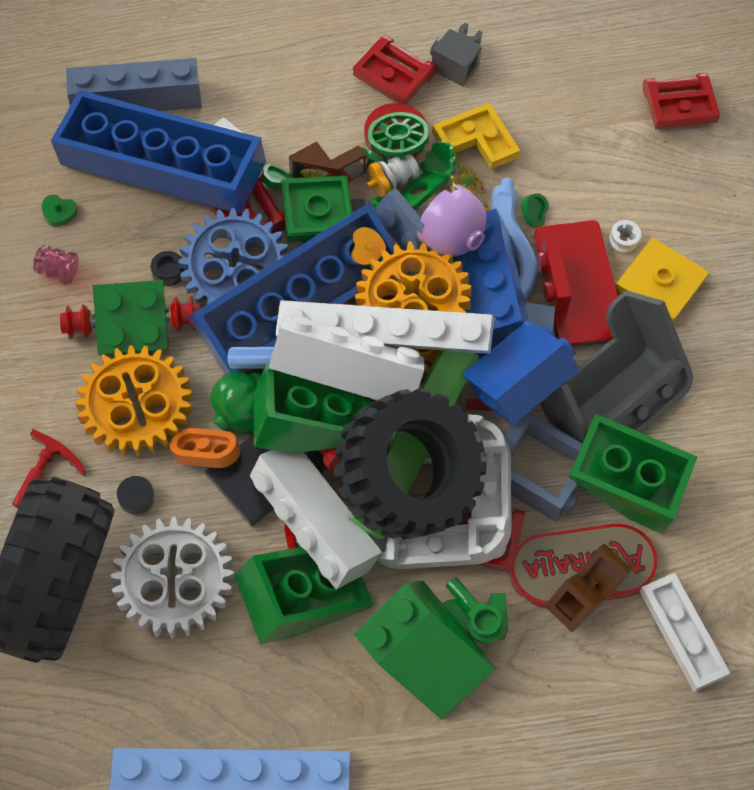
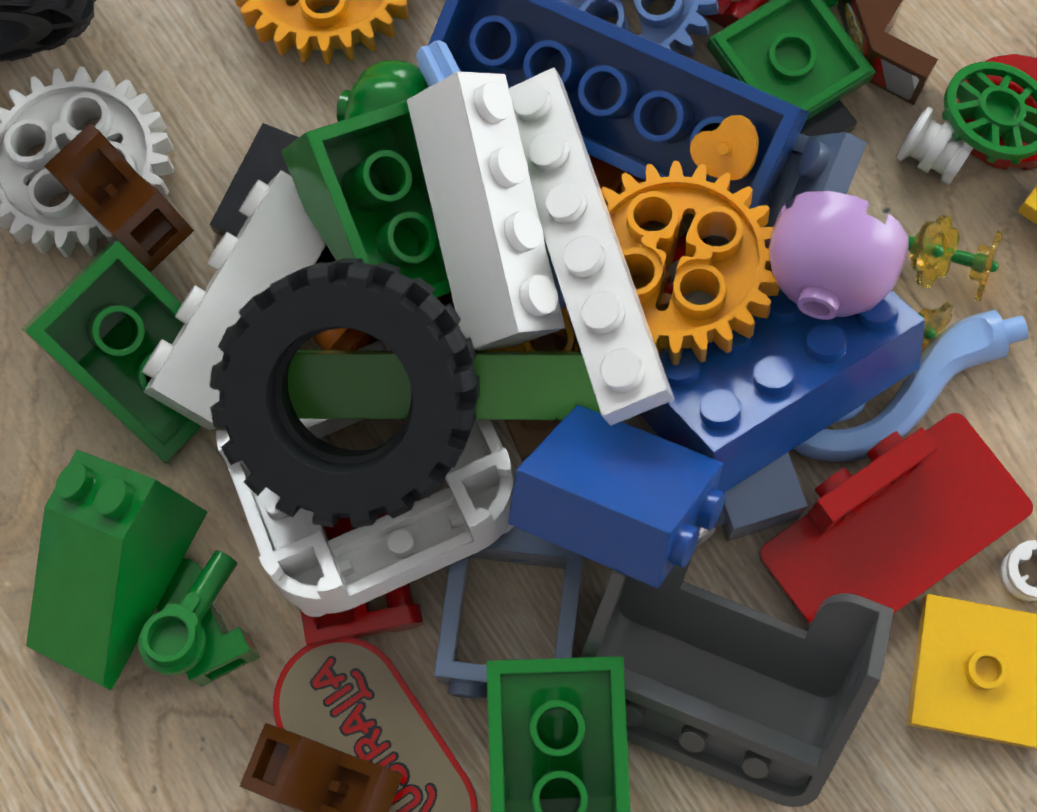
camera: 70 degrees right, 10 degrees up
(135, 495) = (184, 52): black tile -> none
(205, 447) = (289, 98): orange plate -> none
(220, 553) = (119, 197): none -> reddish brown slope
(373, 157) = (936, 87): green piece -> none
(378, 179) = (899, 125): light orange piece -> none
(436, 169) = (980, 209): green piece -> none
(534, 209) = (994, 395): green piece -> none

